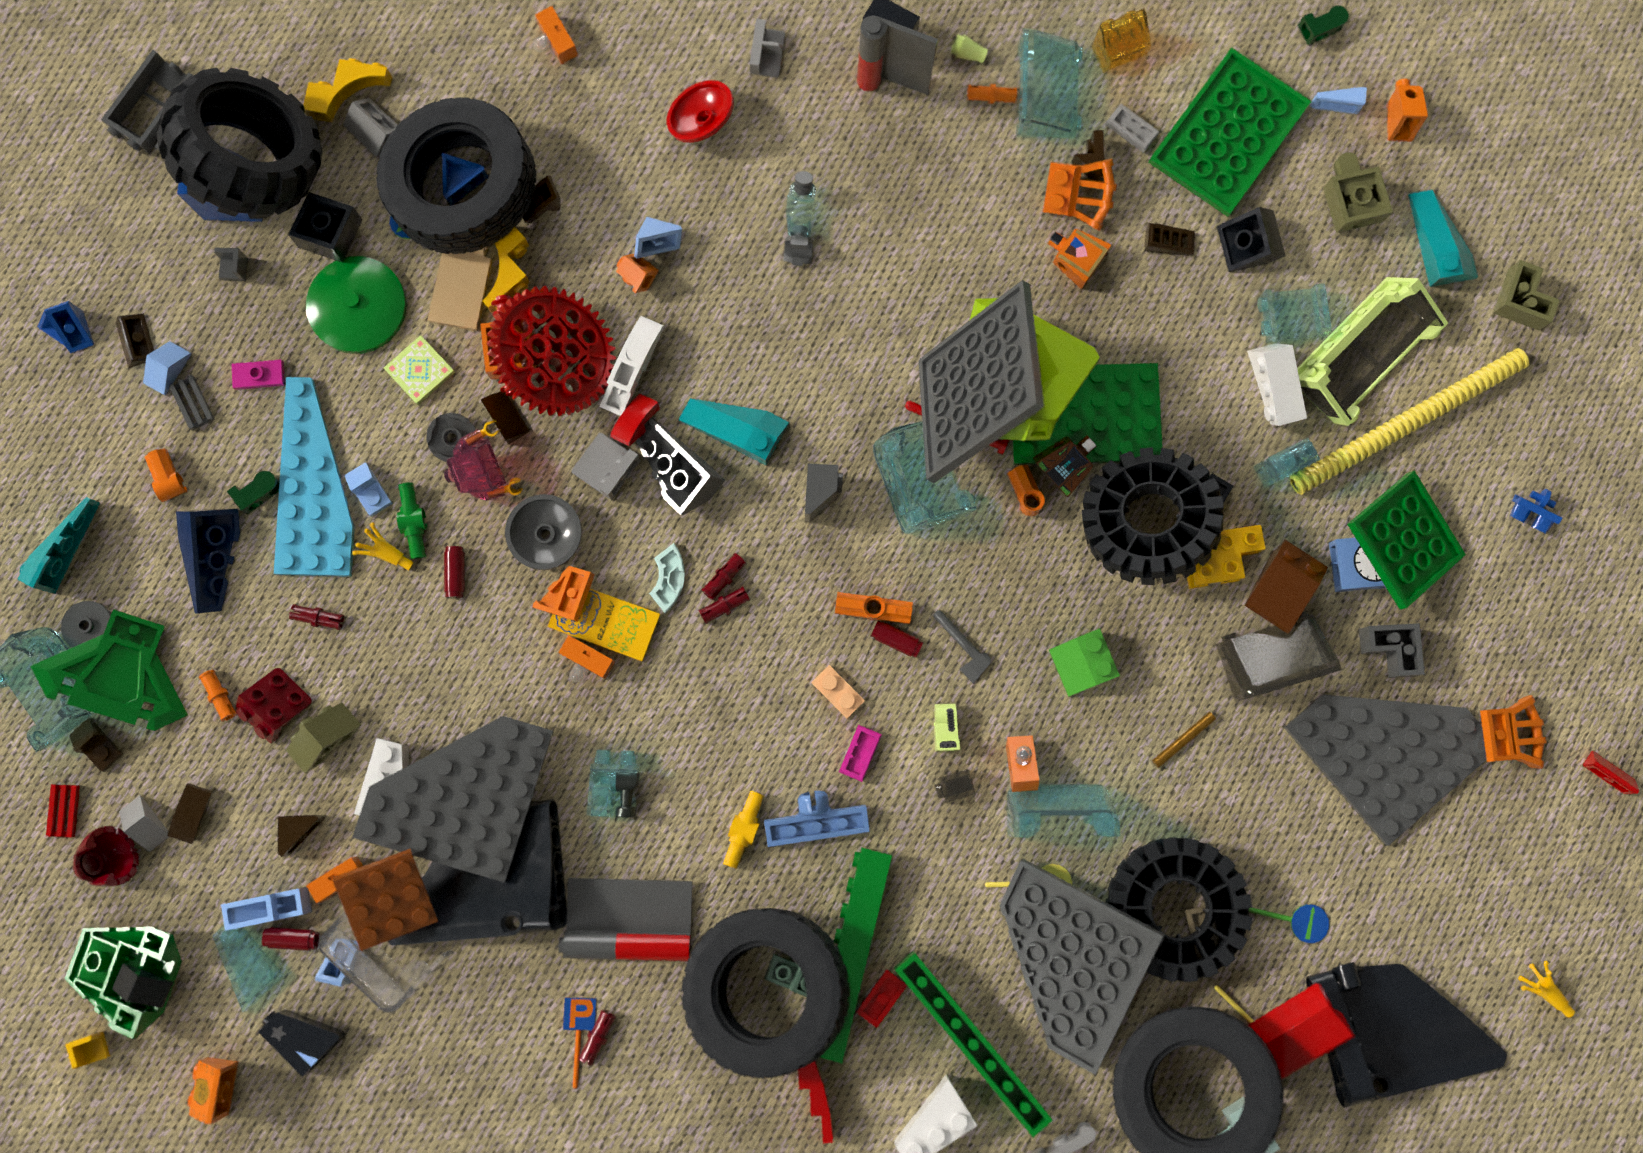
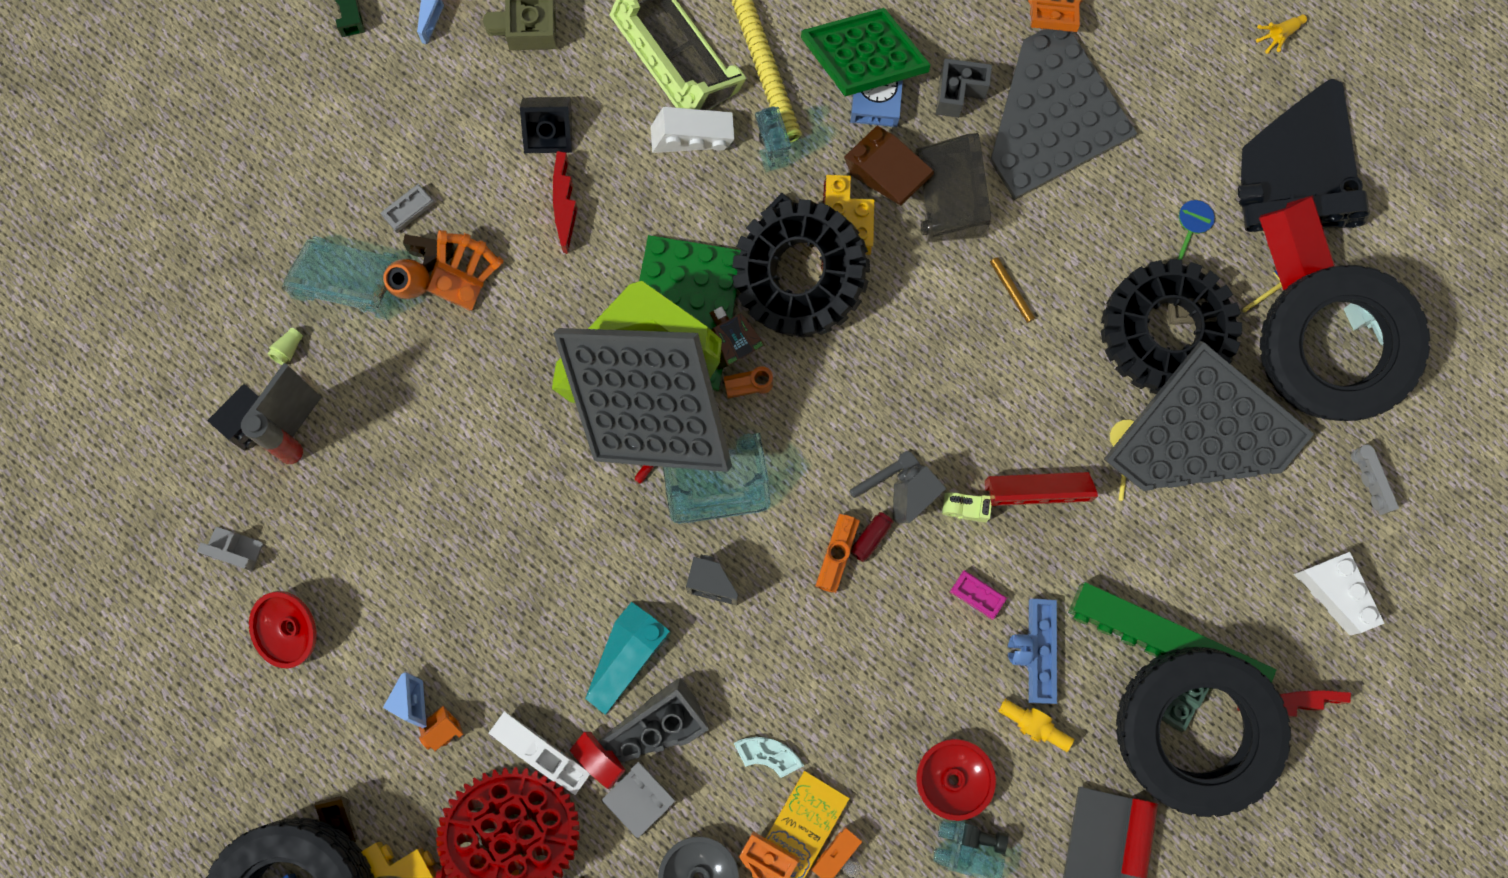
camera: 80 degrees left, 5 degrees down
(554, 36) = (155, 772): orange piece -> none
(657, 754) = (974, 785): none -> red dish
(723, 576) = (778, 697): dark red pin -> none
(724, 605) = (807, 702): dark red pin -> none
(799, 220) = (418, 549): piece -> none
(838, 692) = (913, 605): light nougat plate -> none
(881, 998) = (1216, 620): red plate -> none
(947, 670) = (914, 493): none -> dark grey slope
(954, 786) = (1025, 515): clear smoke brick -> none
(973, 1044) = (1270, 542): green brick -> none
(977, 796) = (1041, 488): none -> red slope
(992, 93) = (338, 333): orange pin -> none
(1022, 763) = (1014, 440): orange piece -> none
(1056, 140) = (406, 279): none -> orange piece
(1061, 800) = (1054, 433): clear light blue windscreen -> none
(1078, 255) = (525, 284): orange torso -> none
(1084, 662) = (926, 363): bright green slope -> none
(1122, 40) = (317, 197): clear yellow slope -> none
(1162, 230) = (522, 215): dark brown slope -> none
(1164, 276) = (564, 208): none -> red slope
(1229, 132) = (434, 120): green plate -> none
(1295, 314) = (627, 101): clear light blue panel -> none

